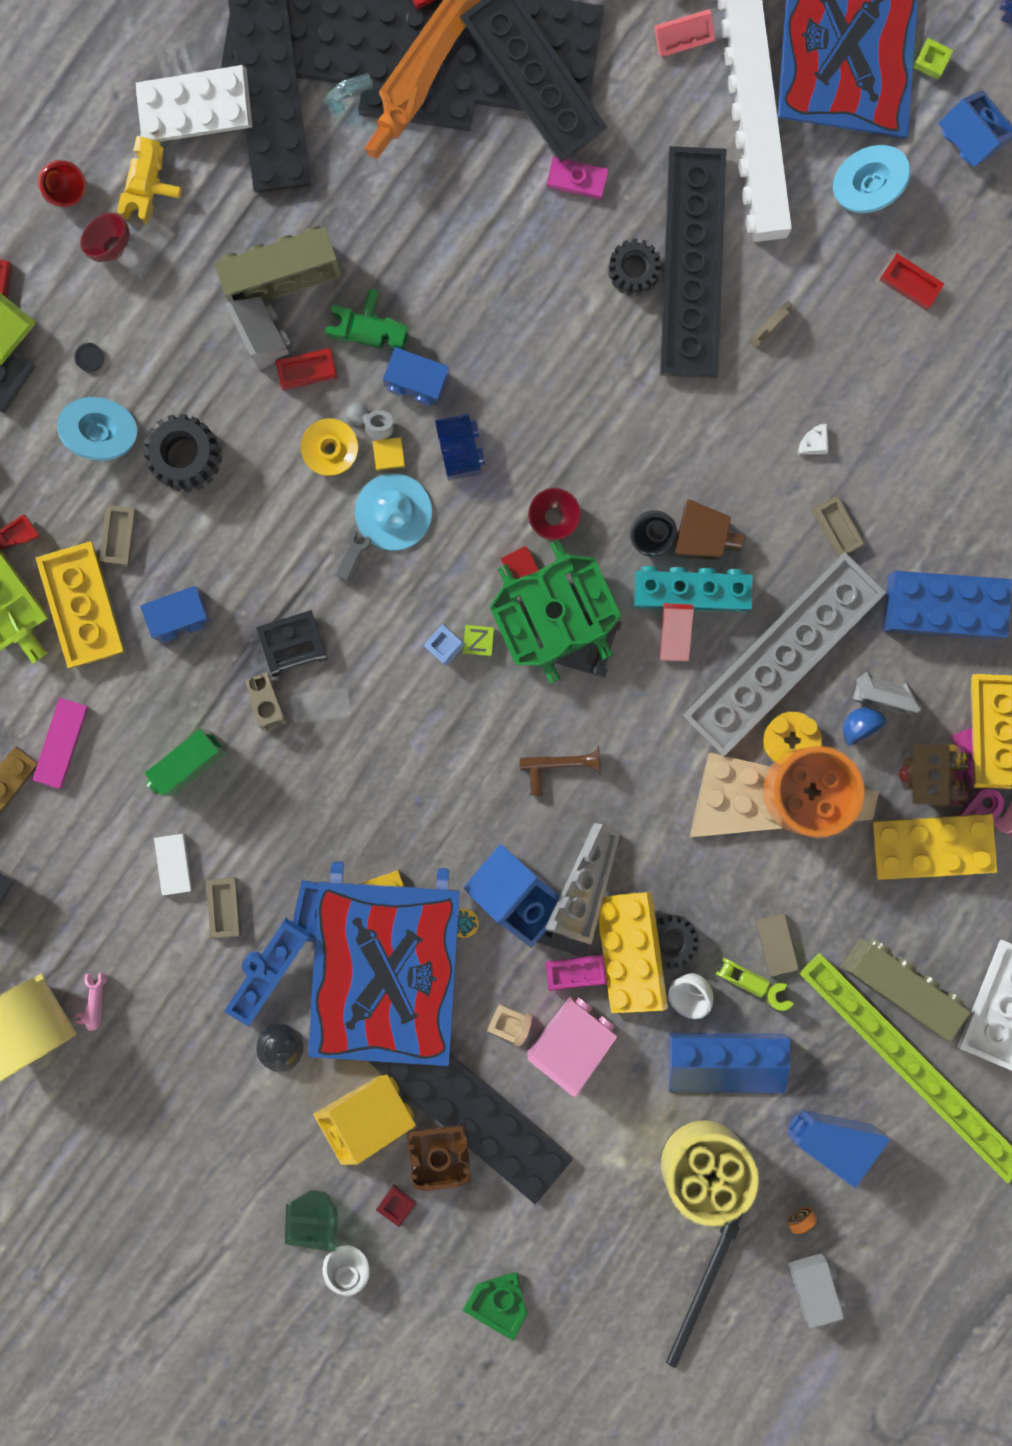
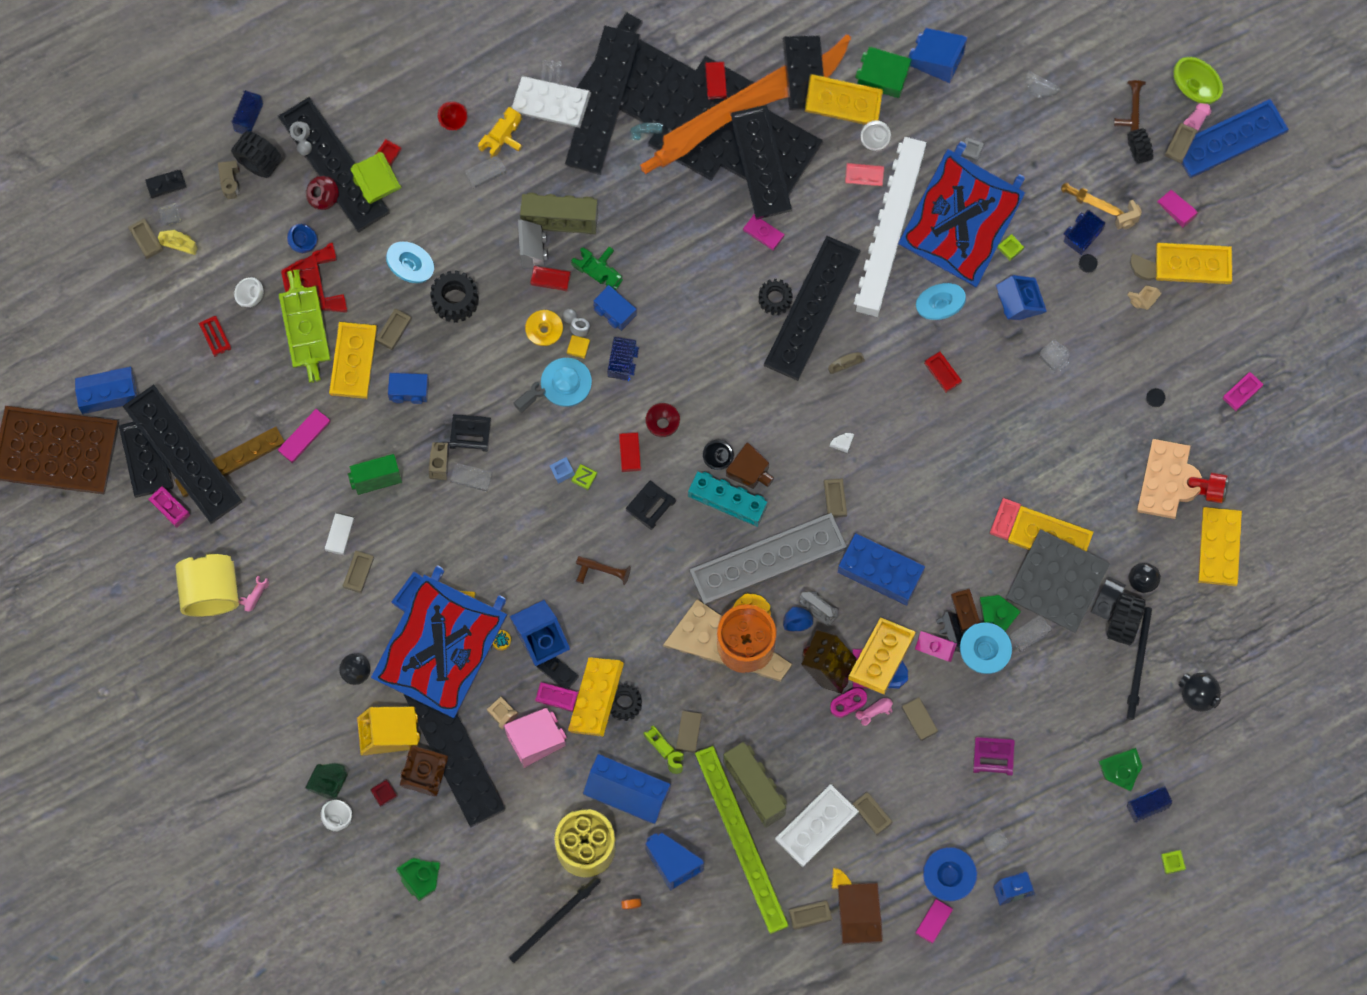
camera: 25 degrees right, 15 degrees down
(89, 357) = (423, 220): black piece -> none
(101, 234) = (462, 153): dark red piece -> none
(265, 971) = (367, 616): blue hinge -> none
(561, 634) = (637, 490): green piece -> none
(584, 892) = (582, 646): light grey wing -> none
(676, 632) = (706, 518): tile -> none
(691, 996) = (621, 738): white piece -> none
(816, 1290) = (621, 947): light grey brick -> none
(935, 846) = (811, 709): yellow plate -> none

